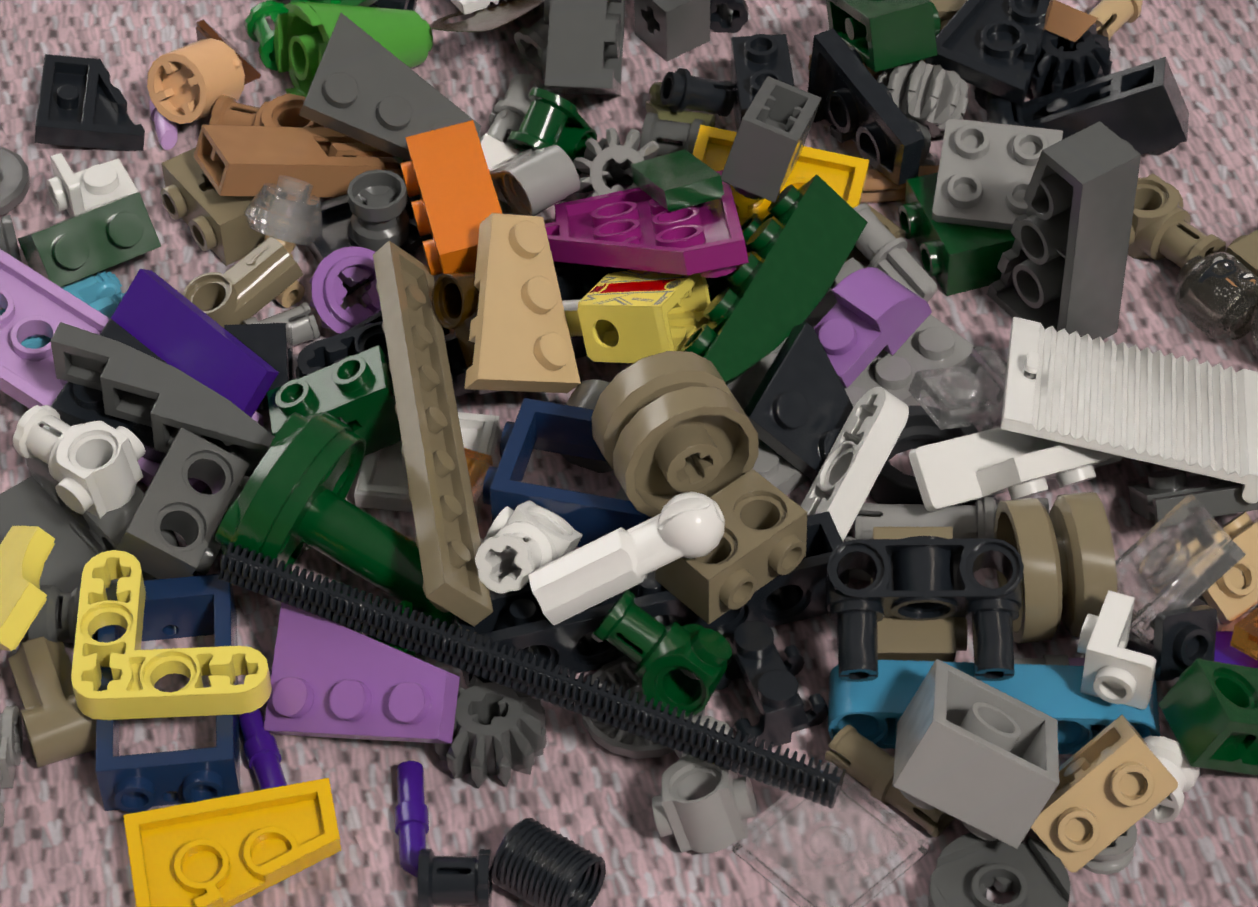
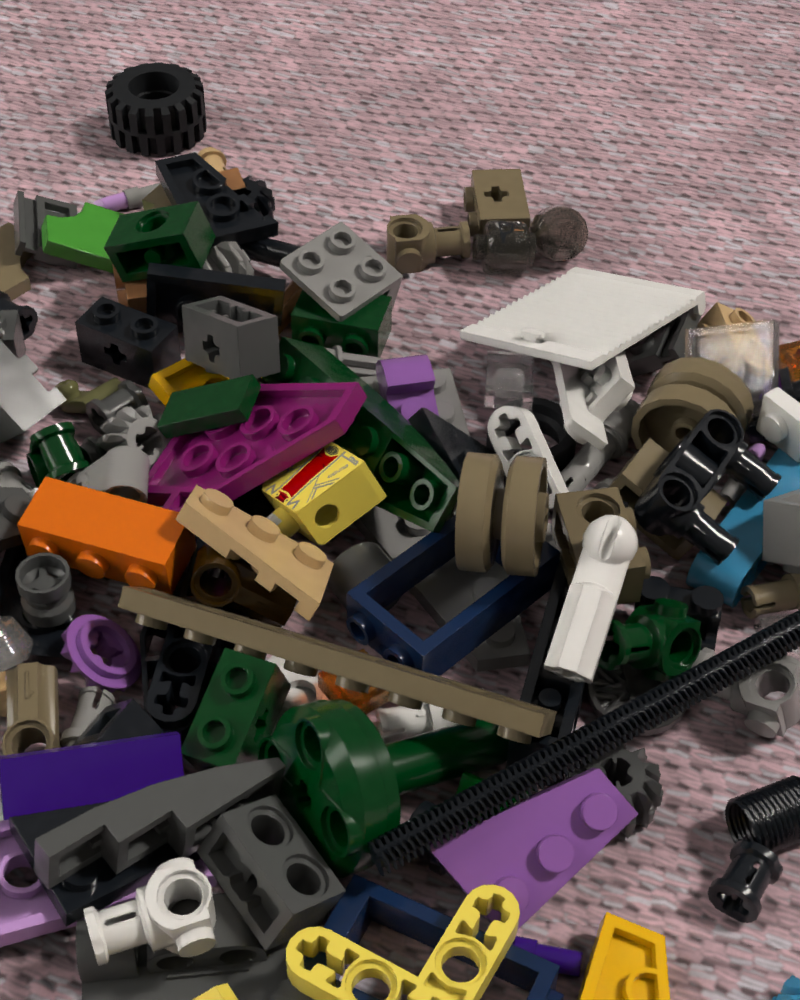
camera: 60 degrees left, 0 degrees up
(411, 815) = (655, 884): dark purple piece -> none
(522, 543) = (498, 665): white connector -> none
(684, 91) = (90, 374): black pin -> none
(1073, 236) = (447, 262): dark grey wedge -> none
(1133, 103) = (315, 202): black slope -> none

